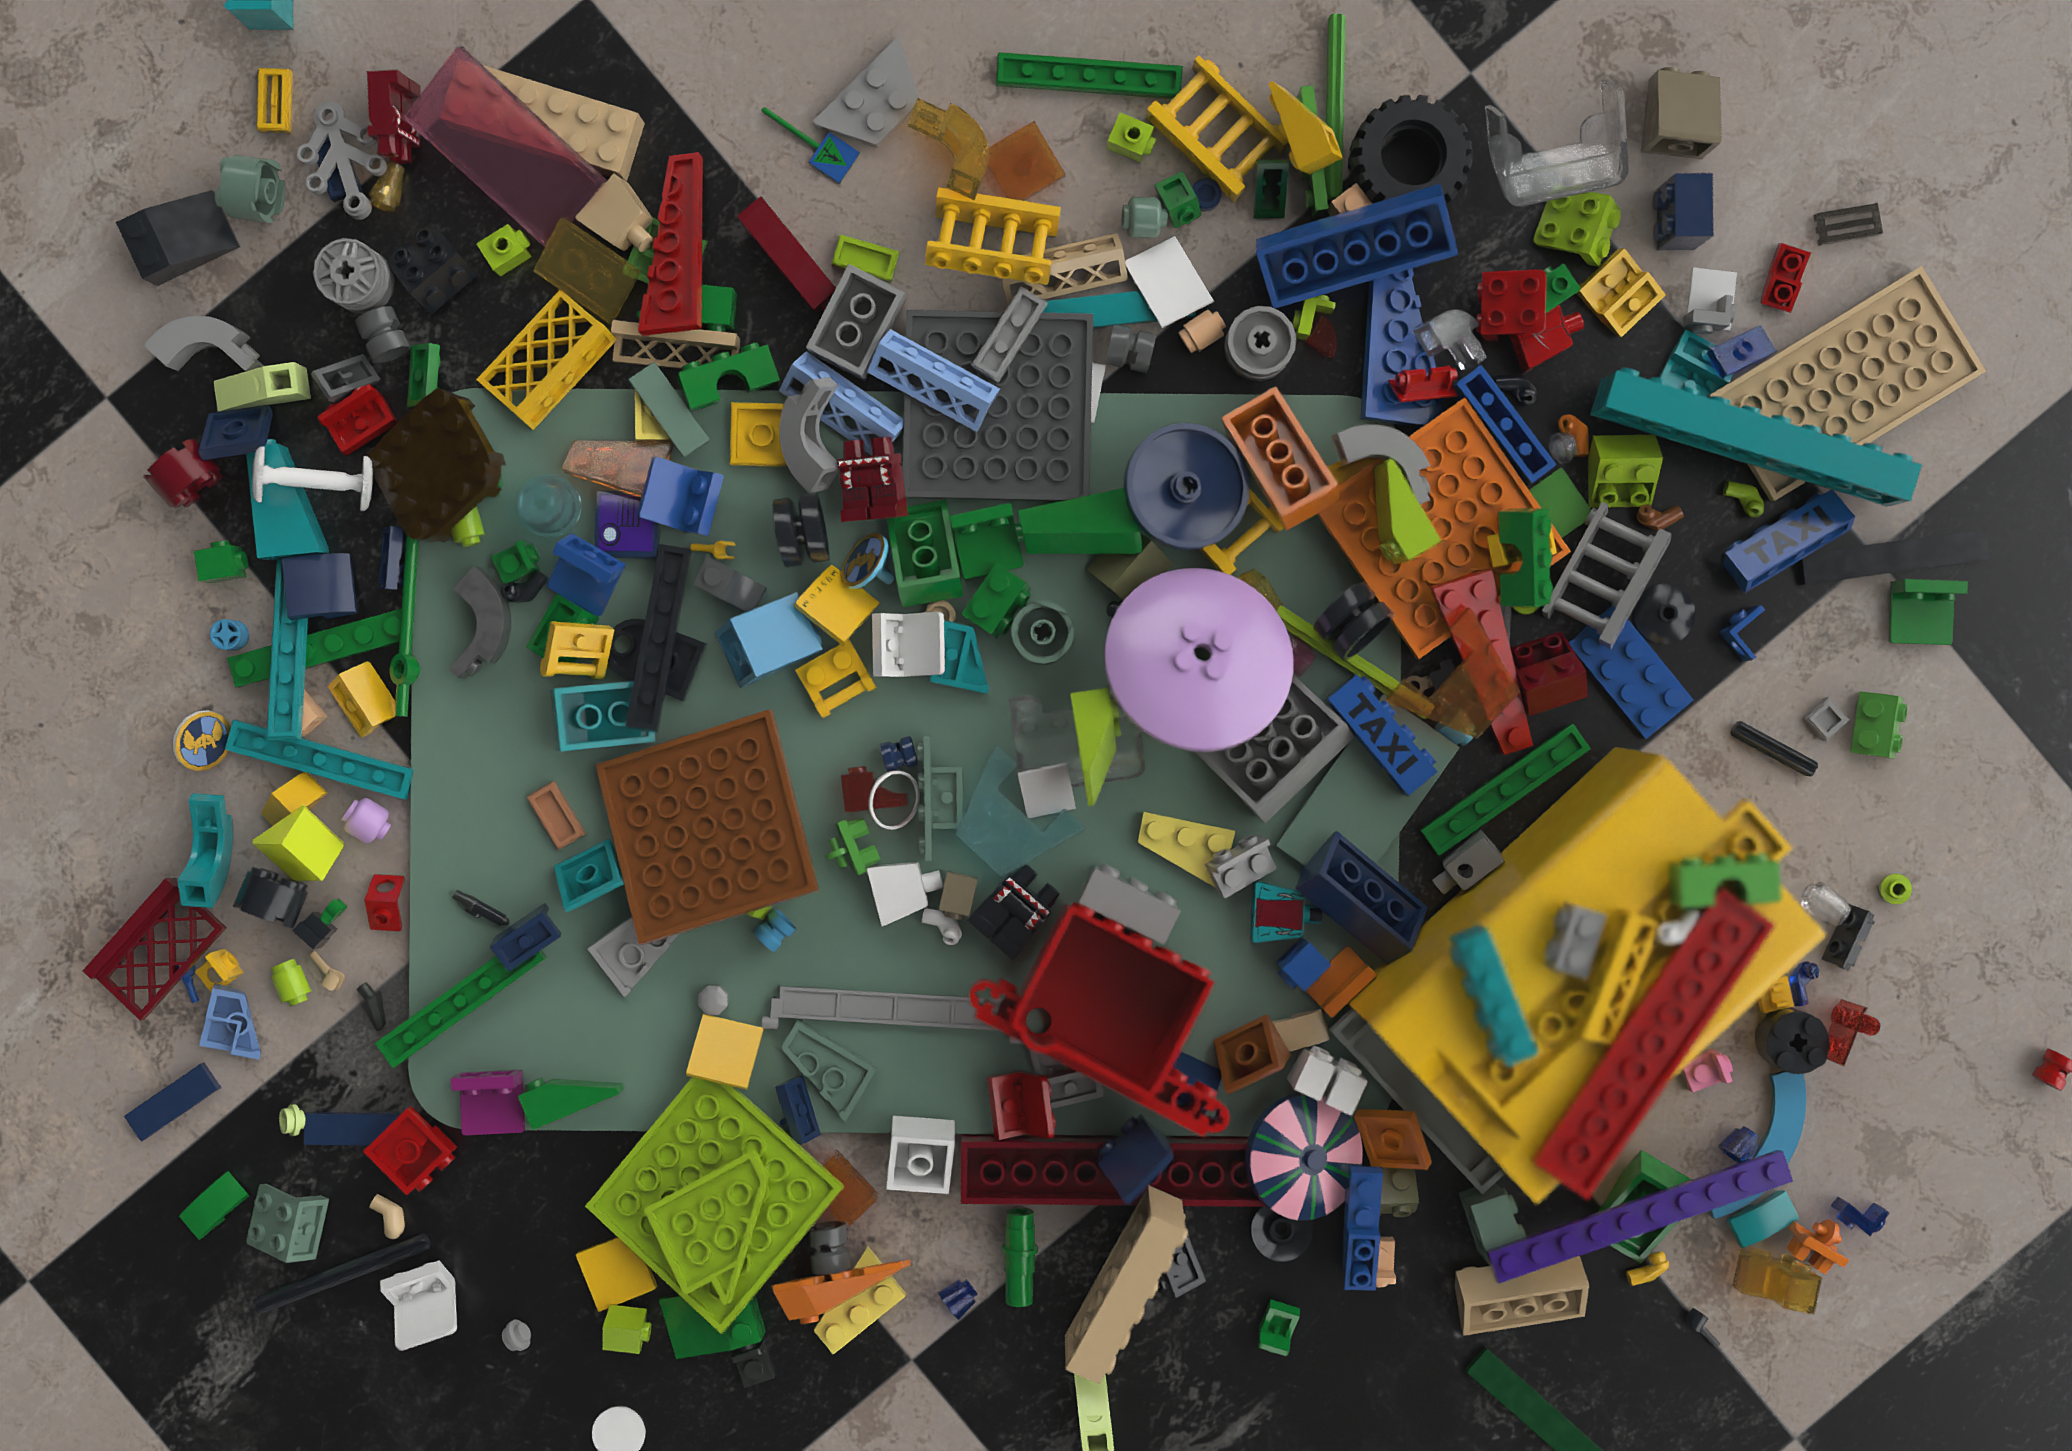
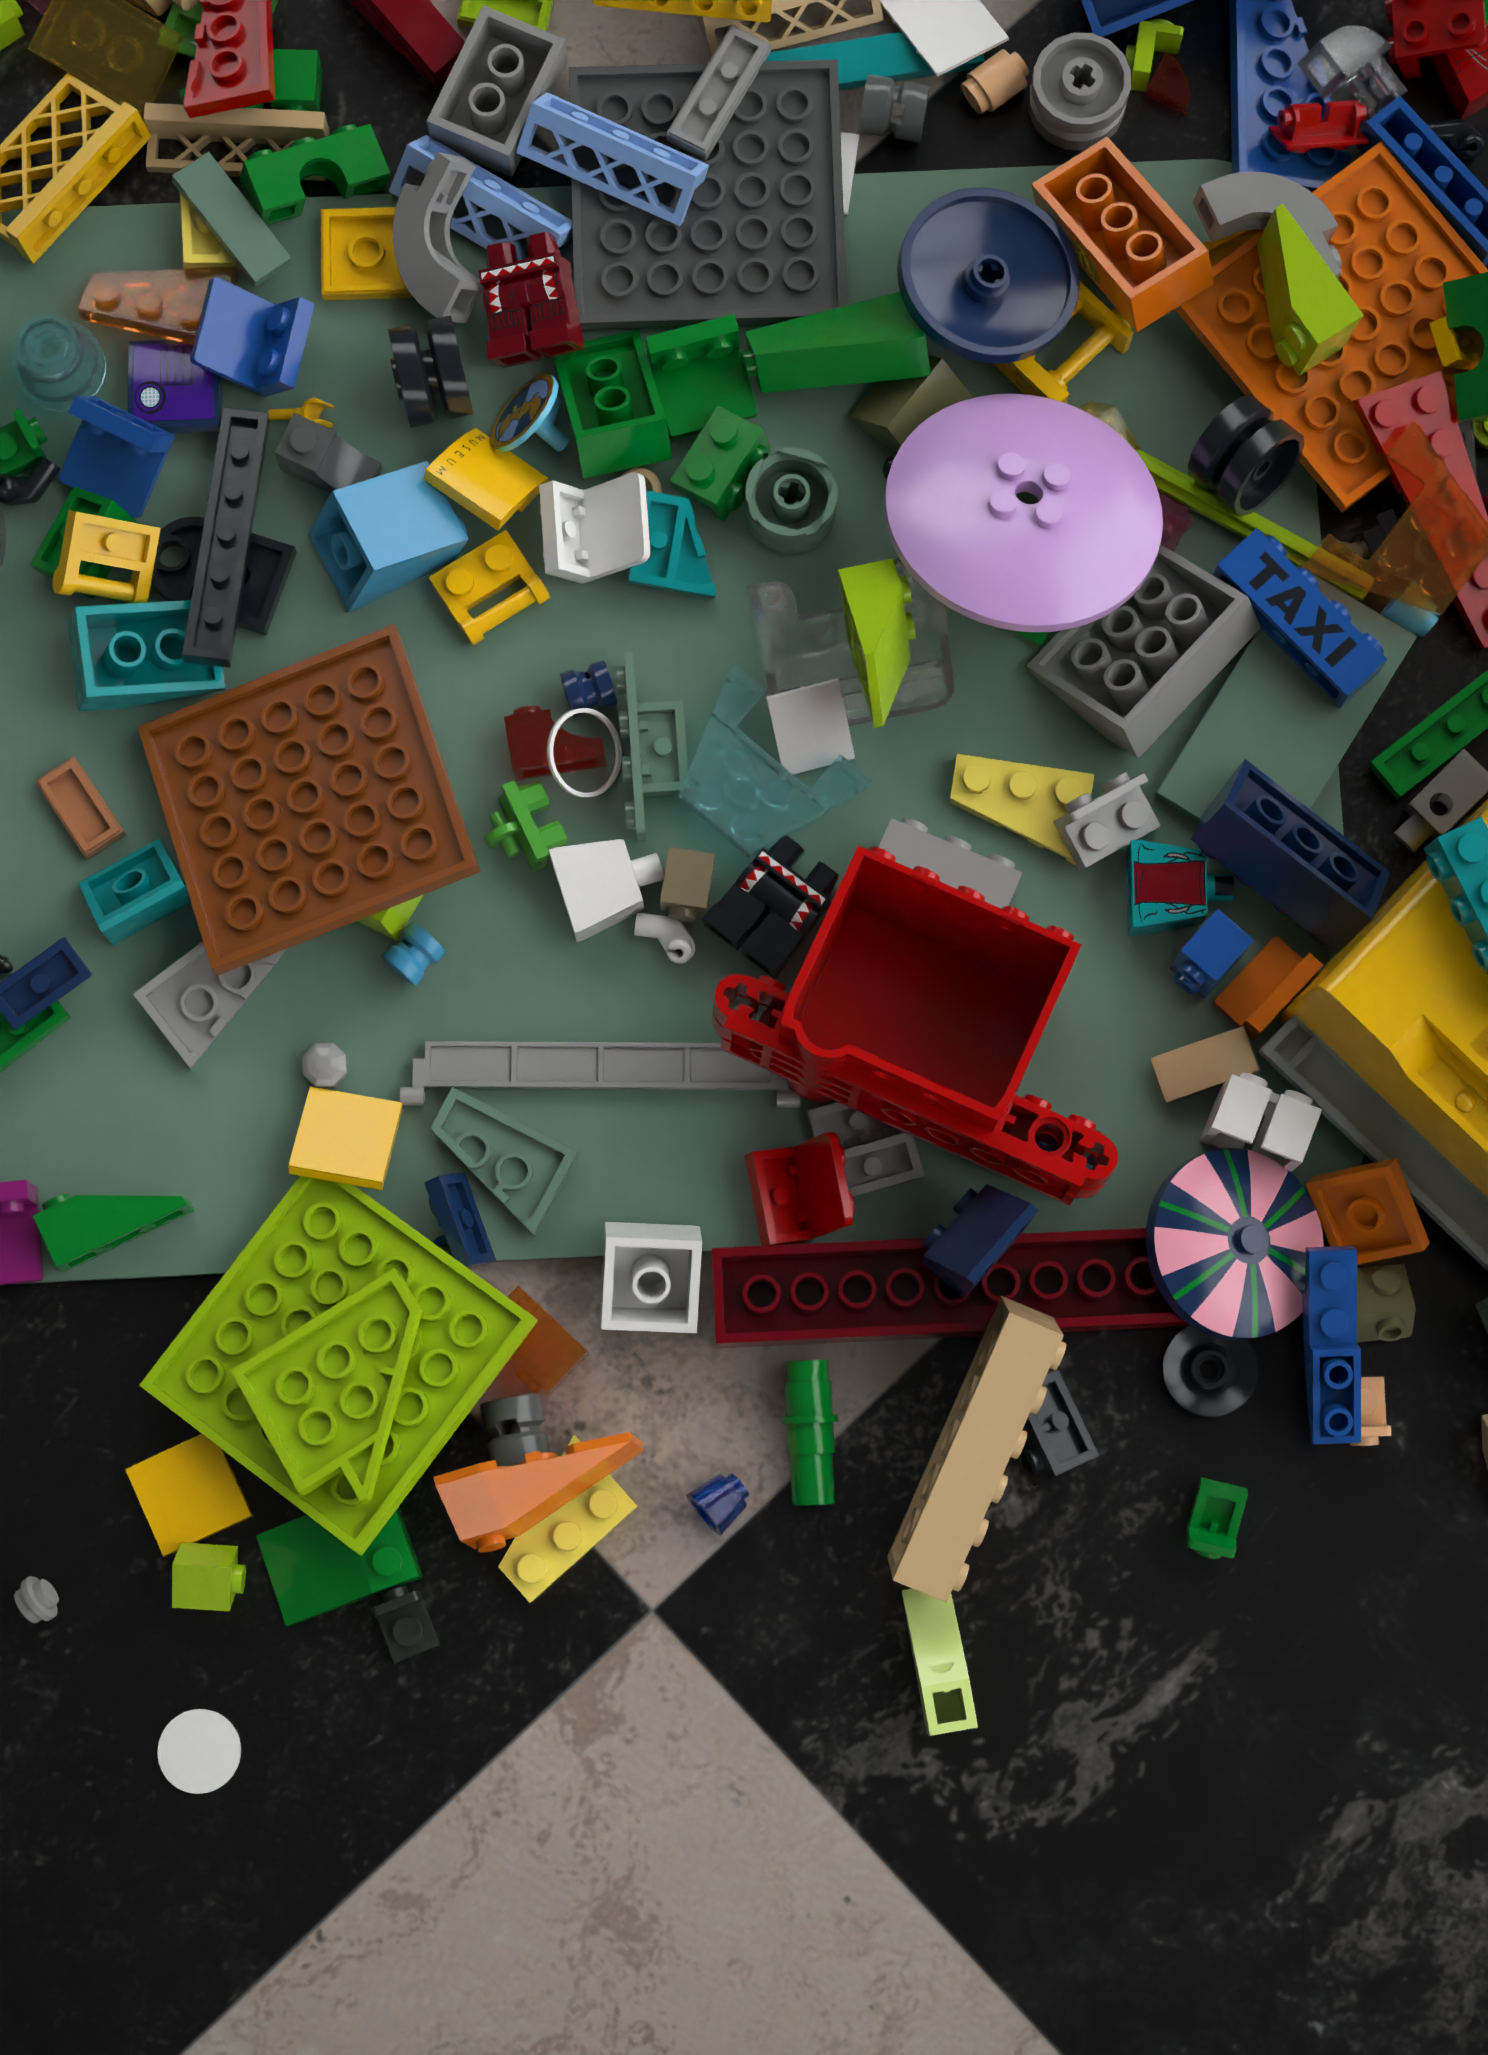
camera: 10 degrees left, 10 degrees down
(1250, 1053) = (1141, 1092): dark orange slope -> none

